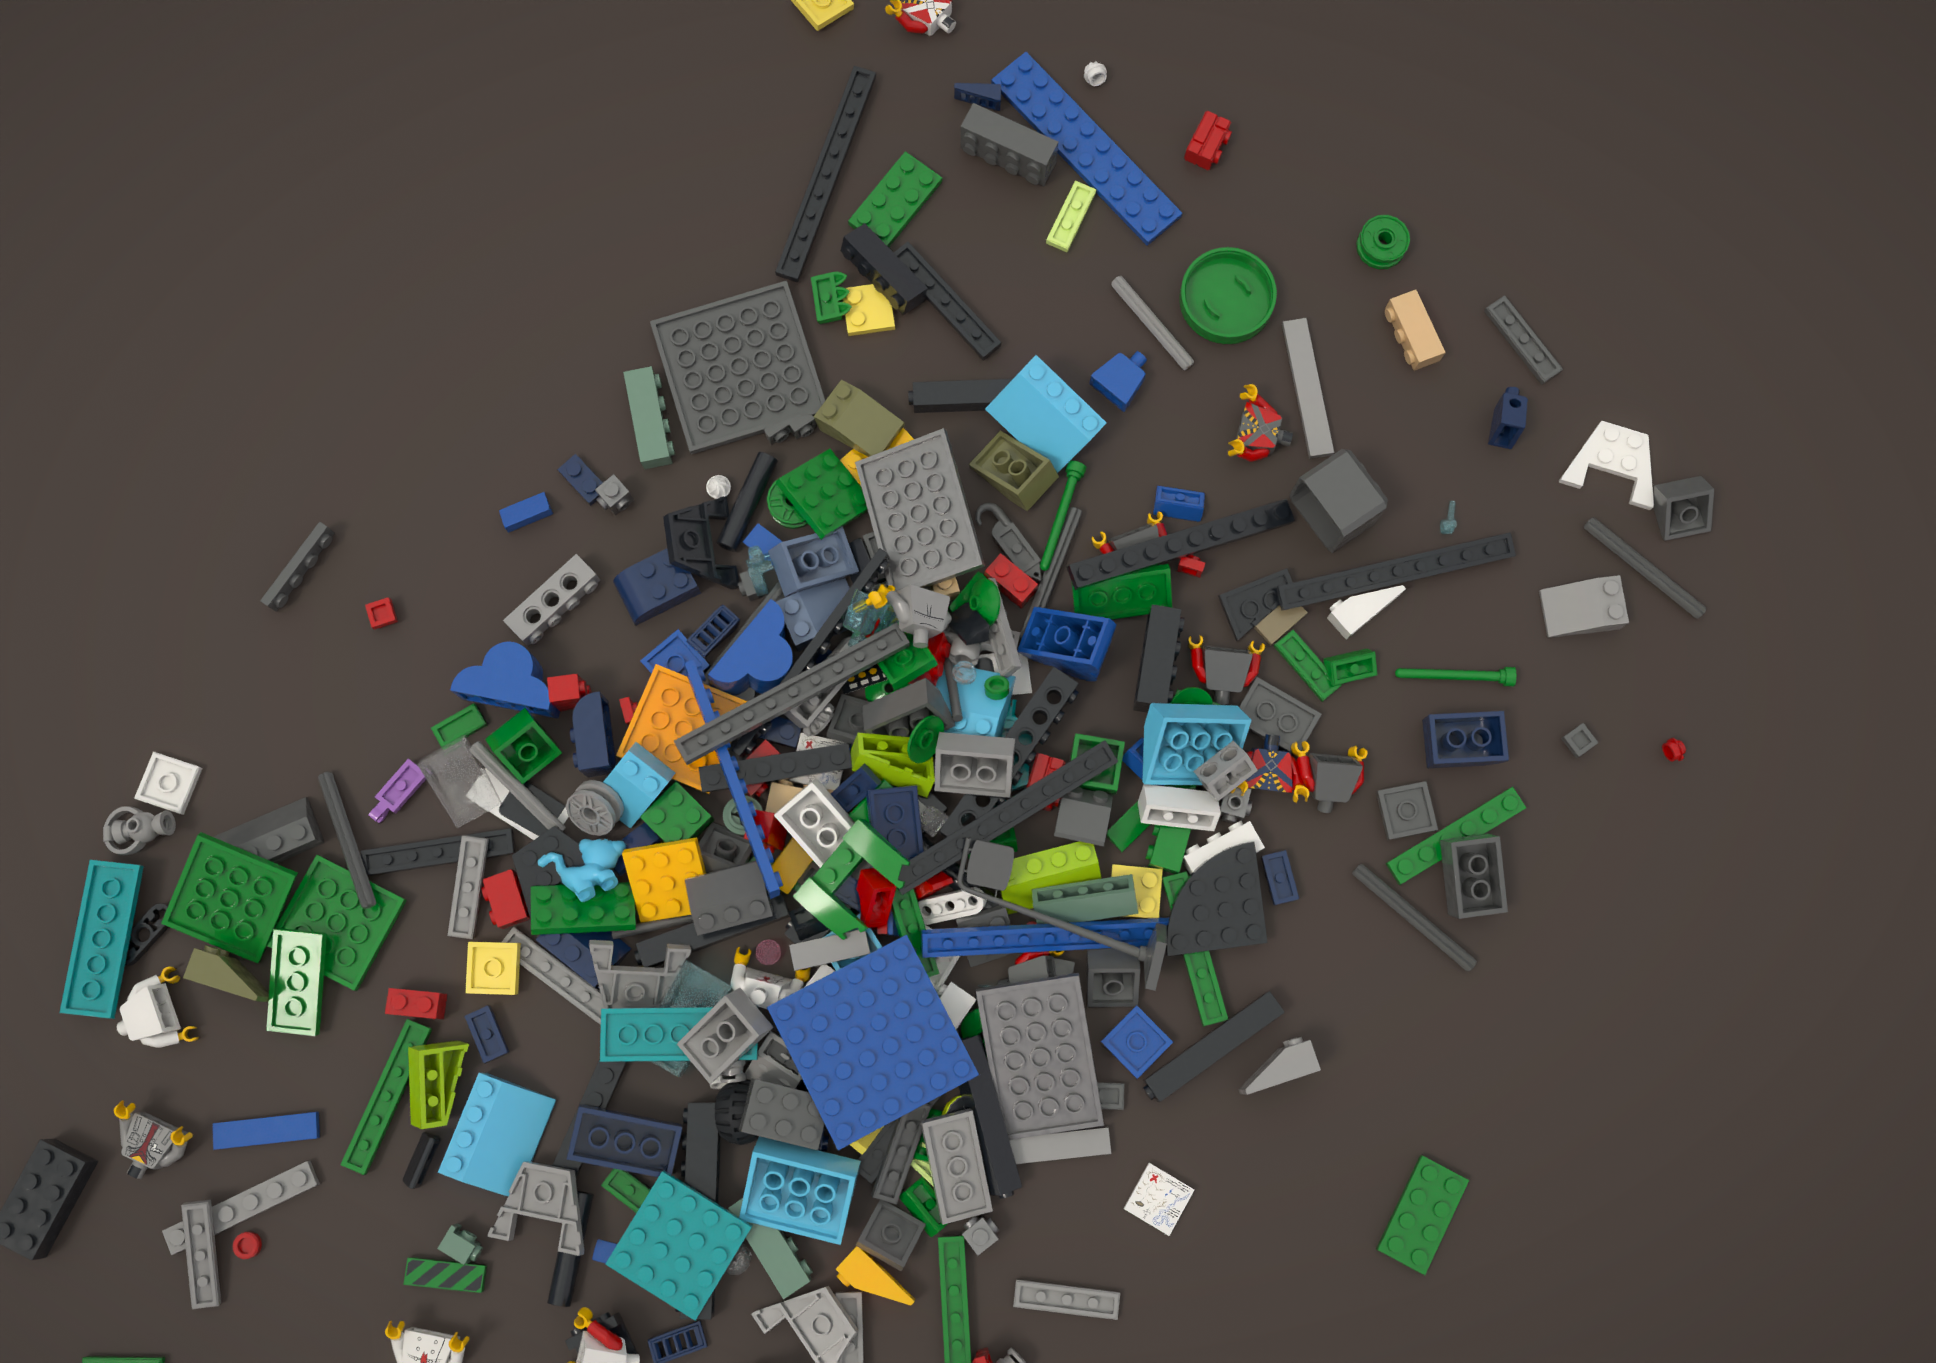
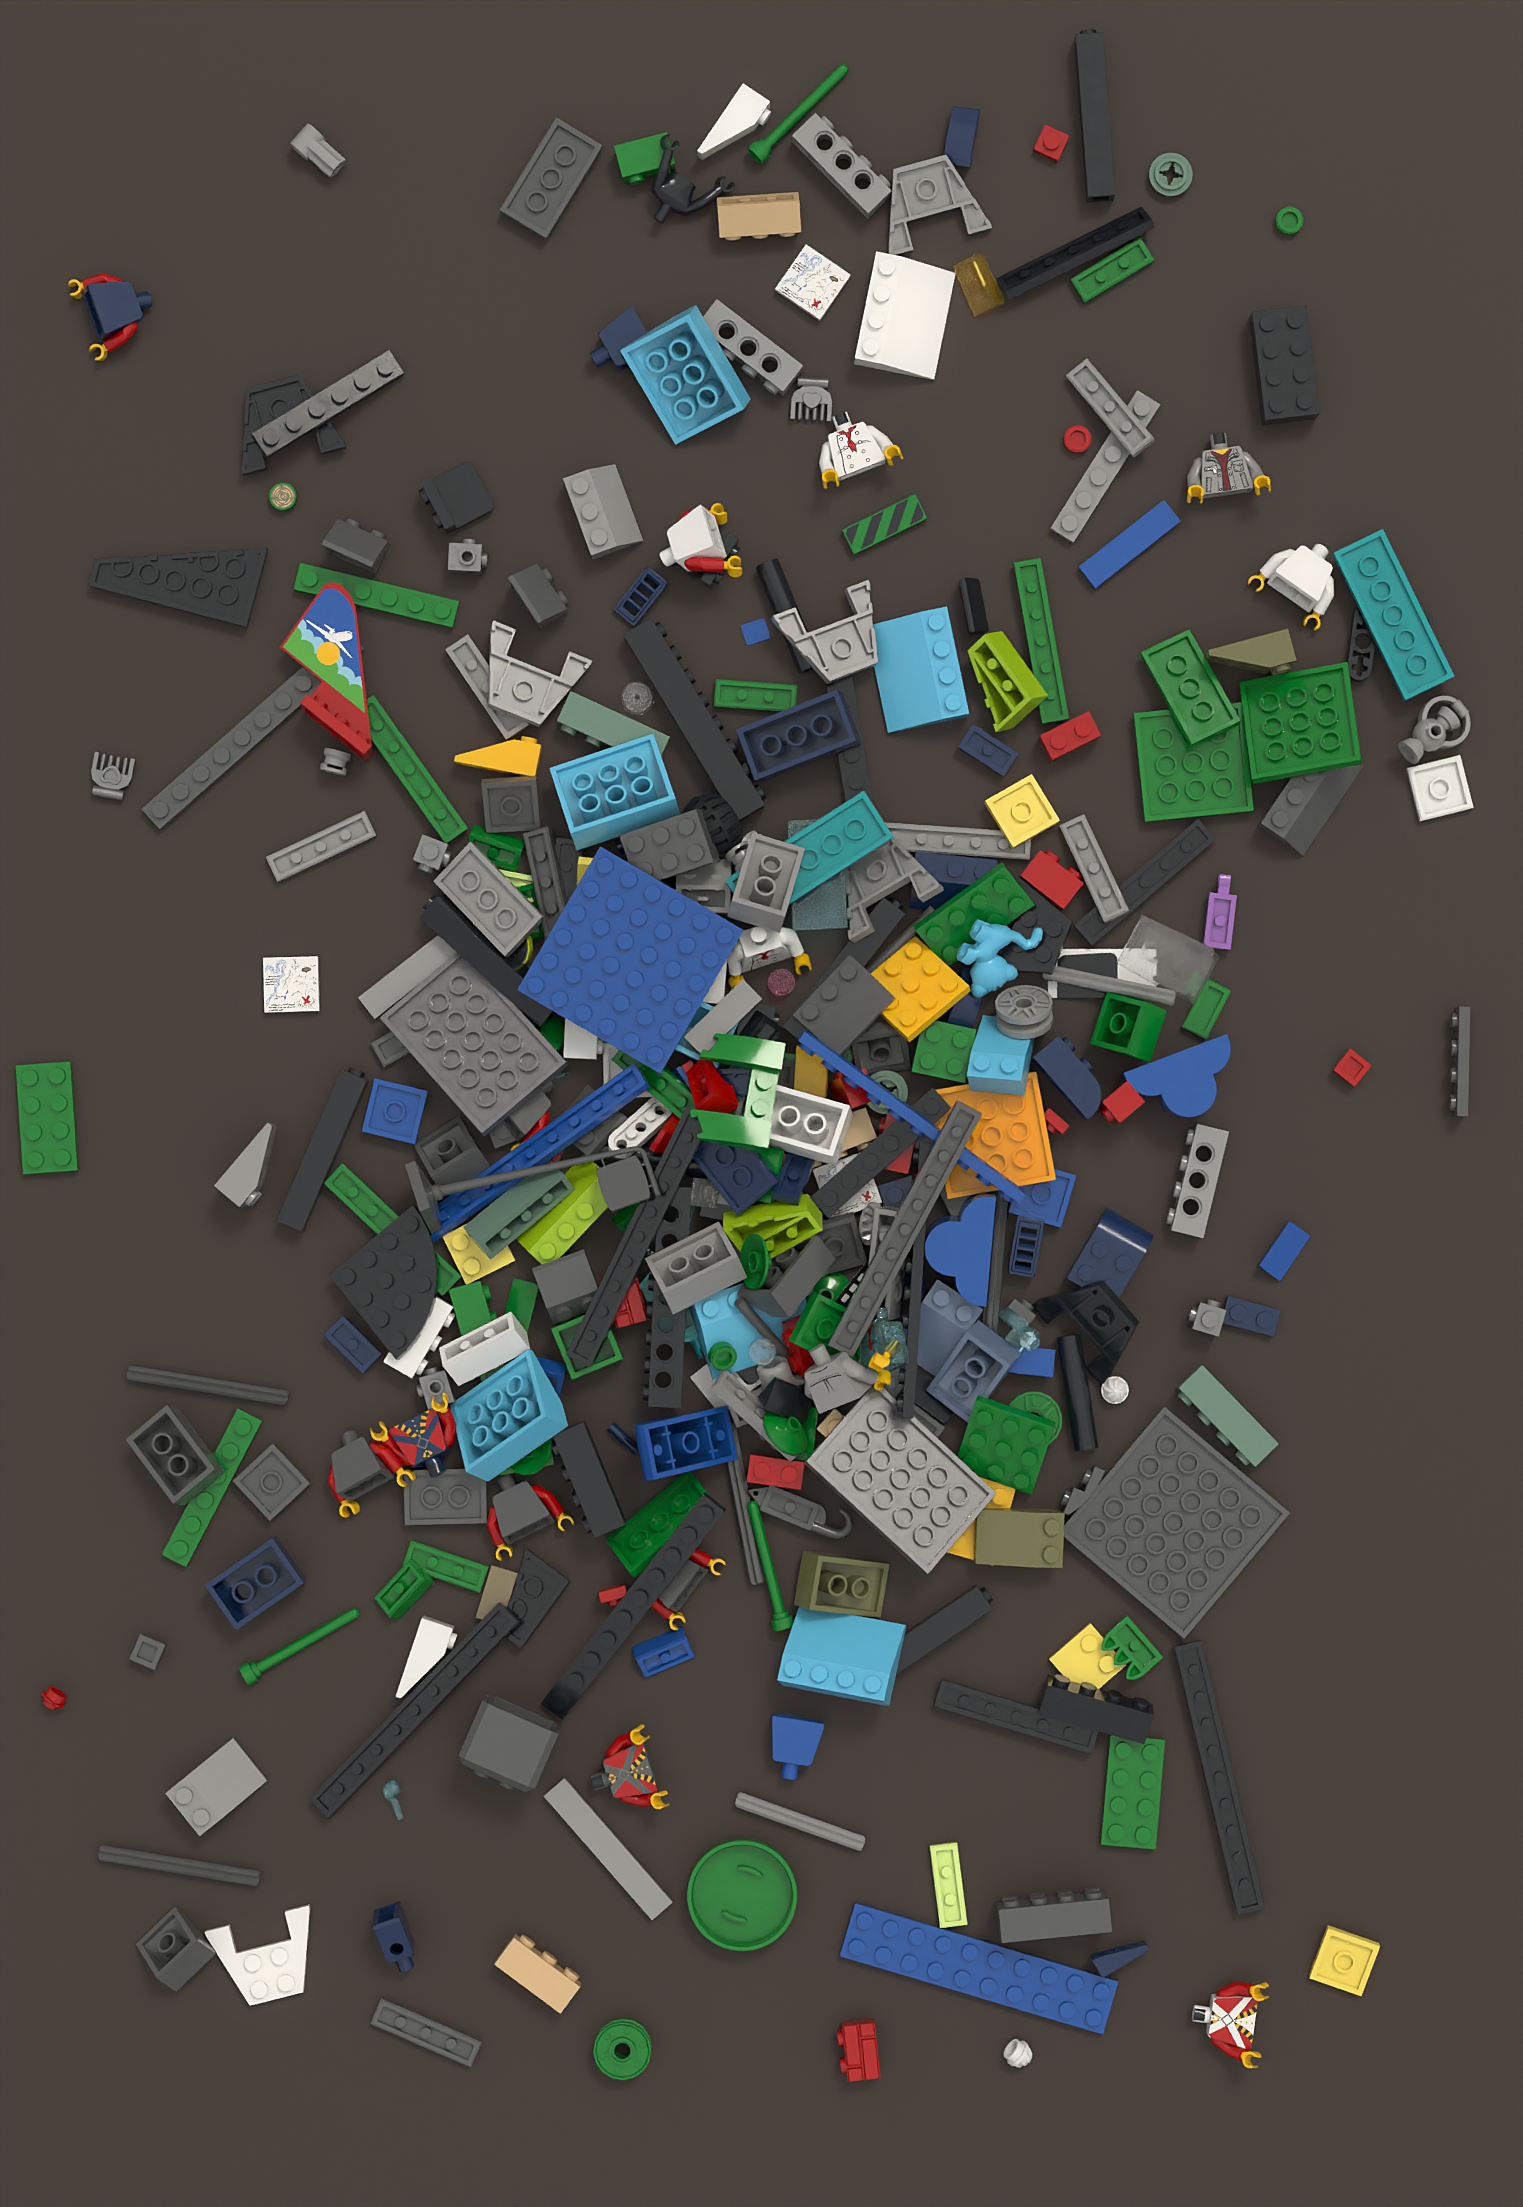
camera: 150 degrees right, 10 degrees up
(347, 840) = (1234, 840): dark grey axle -> none
(460, 1245) = (886, 558): sand green brick -> none
(678, 1245) = (691, 679): teal plate -> none
(1112, 680) = (620, 1435): none -> dark blue pin
(1225, 770) = (461, 1408): light grey brick -> none

